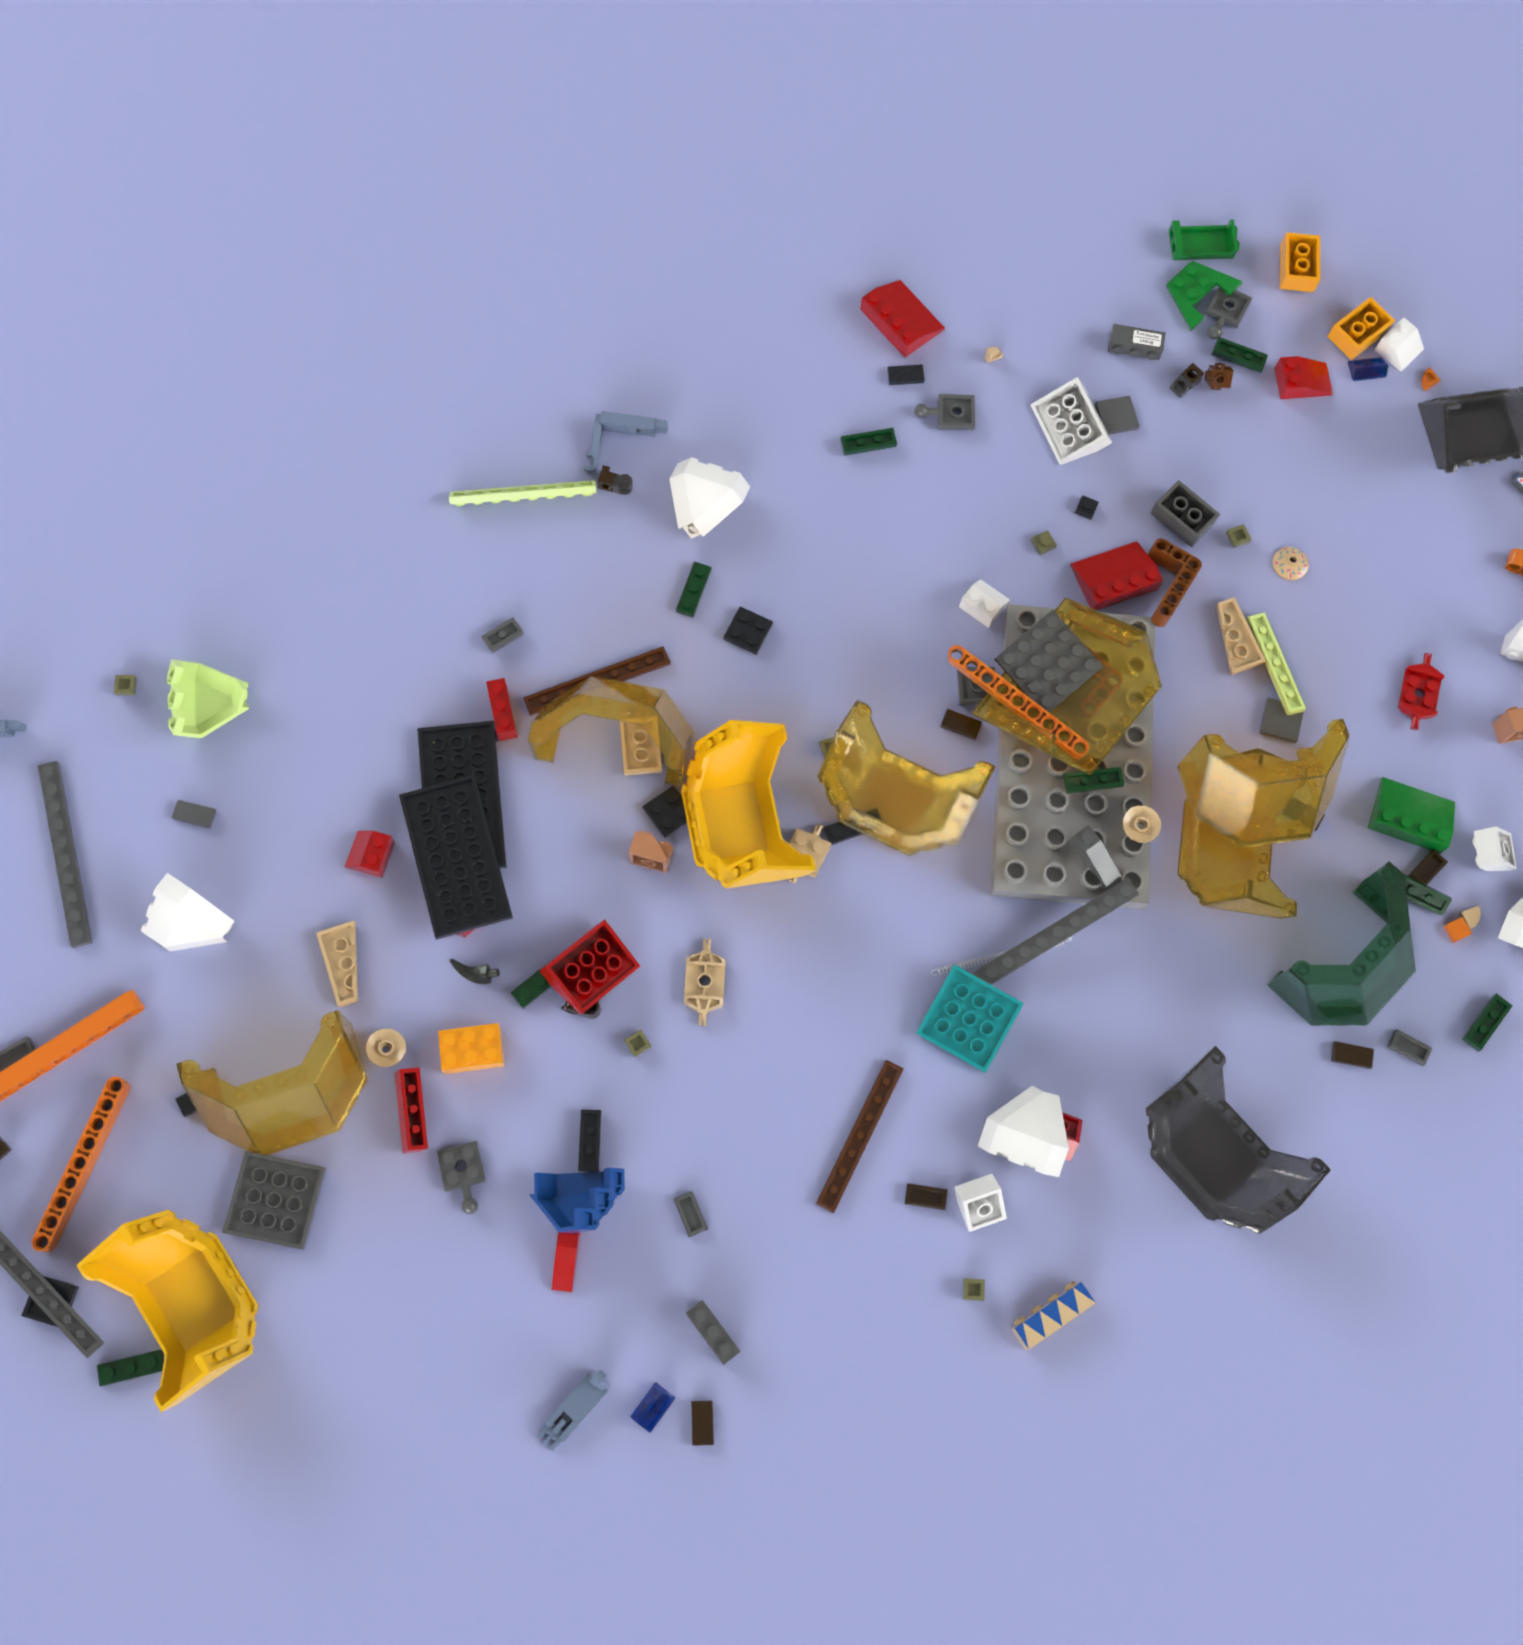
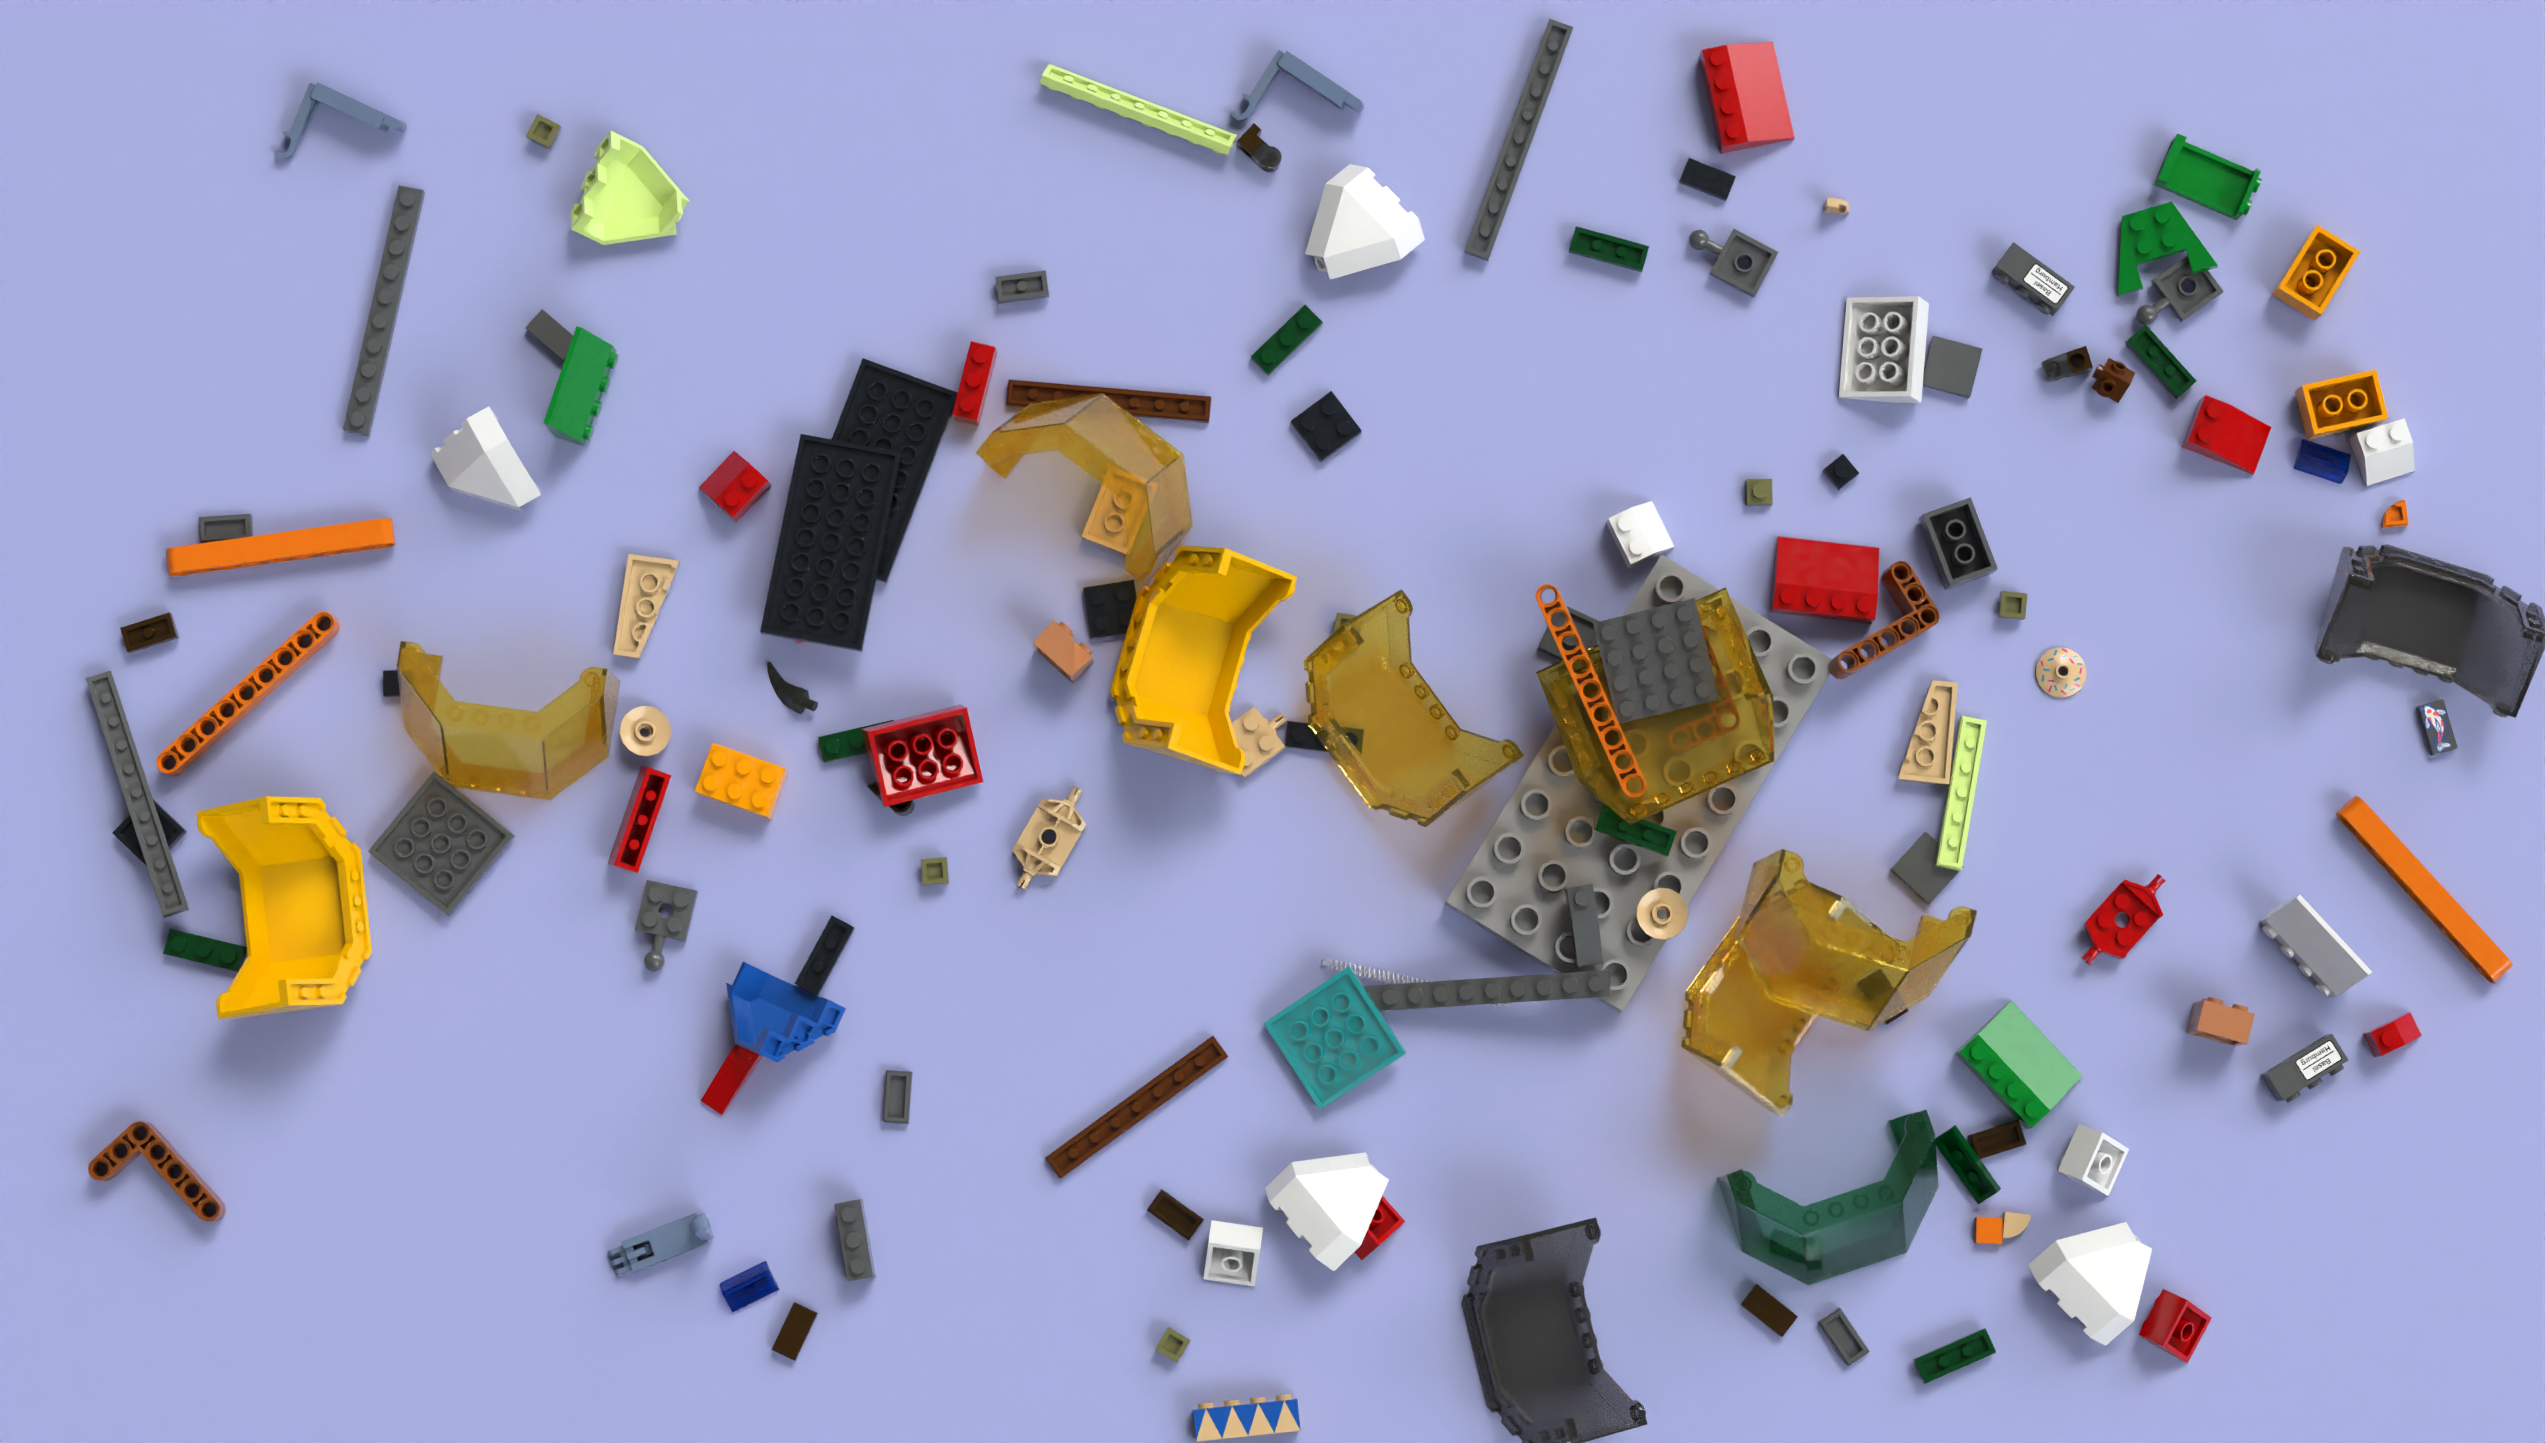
camera: 30 degrees right, 10 degrees up
(170, 1549) = (163, 1166): none -> dark orange beam
(228, 836) = (580, 387): none -> green slope
(776, 404) = (1518, 140): none -> dark grey plate
(961, 724) = (1522, 675): dark brown tile -> none

